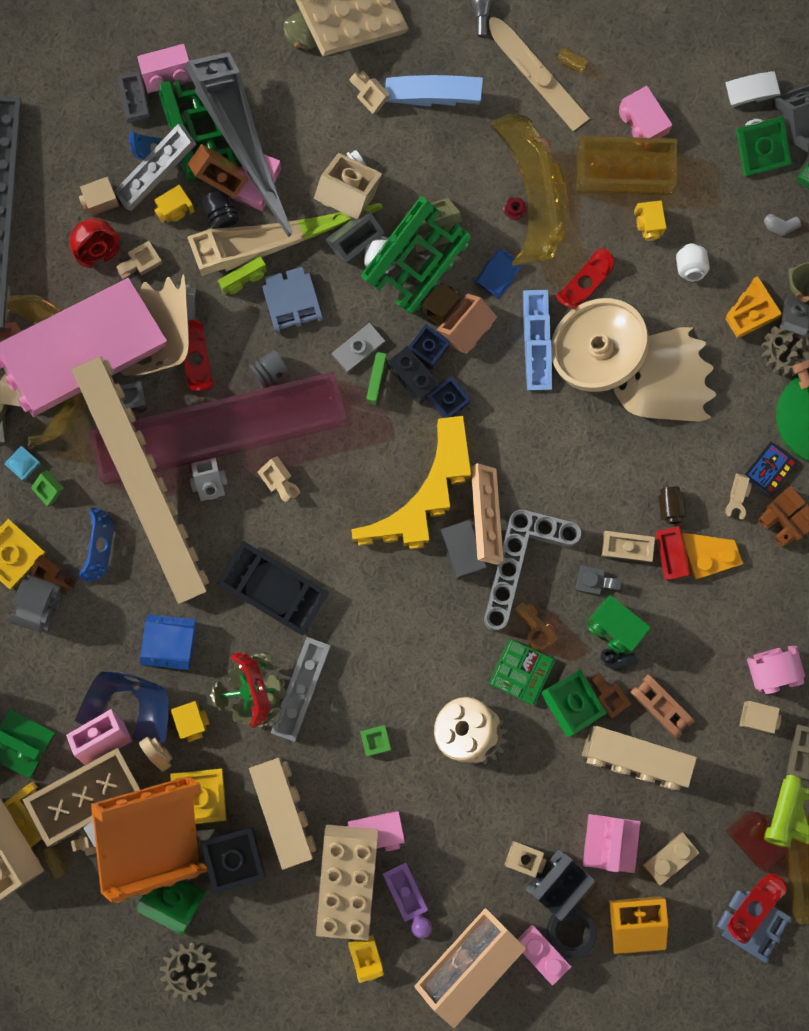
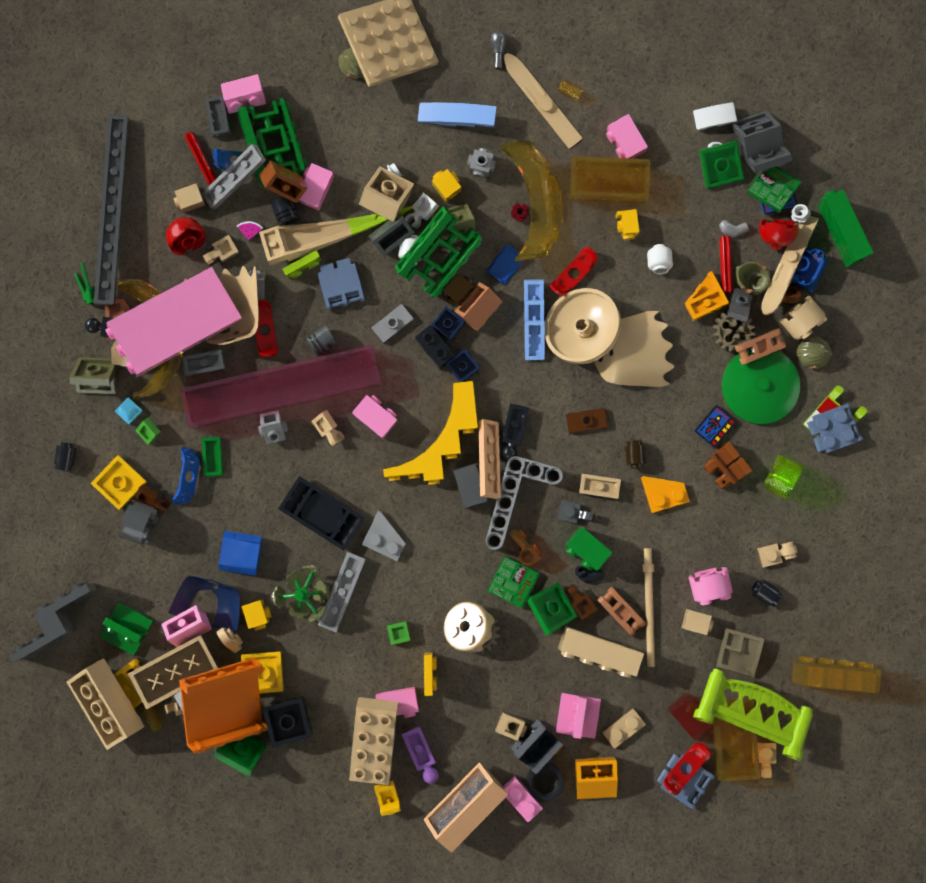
camera: 10 degrees right, 5 degrees up
(111, 147) = (200, 157): none -> red axle
(129, 524) = (212, 456): none -> green tile
(139, 478) = (219, 428): tan brick -> none
(173, 205) = (248, 206): yellow brick -> none
(175, 234) = (250, 229): none -> dark pink tile
(202, 979) = (263, 809): dark tan gear -> none
(224, 97) = (288, 119): dark grey plate -> none
(261, 701) = (304, 581): red piece -> none
(282, 813) = (325, 687): tan brick -> none
(339, 463) = (375, 416): none -> bright pink brick
(353, 619) = (384, 538): none -> light grey wing
(372, 92) = (408, 116): tan plate -> none
(376, 378) = (405, 350): bright green tile -> none
(393, 205) = (424, 208): none -> white plate
(418, 803) = (430, 682): none -> yellow plate
(422, 175) = (446, 184): none -> yellow brick
(465, 148) = (481, 170): none -> light grey brick
(516, 477) = (514, 429): none -> black plate
(607, 464) = (586, 420): none -> reddish brown plate
(673, 553) = (635, 492): red tile -> none
(694, 649) = (648, 568): none -> tan bar
(740, 489) = (690, 443): tan plate -> none
(774, 268) = (726, 264): none -> red axle

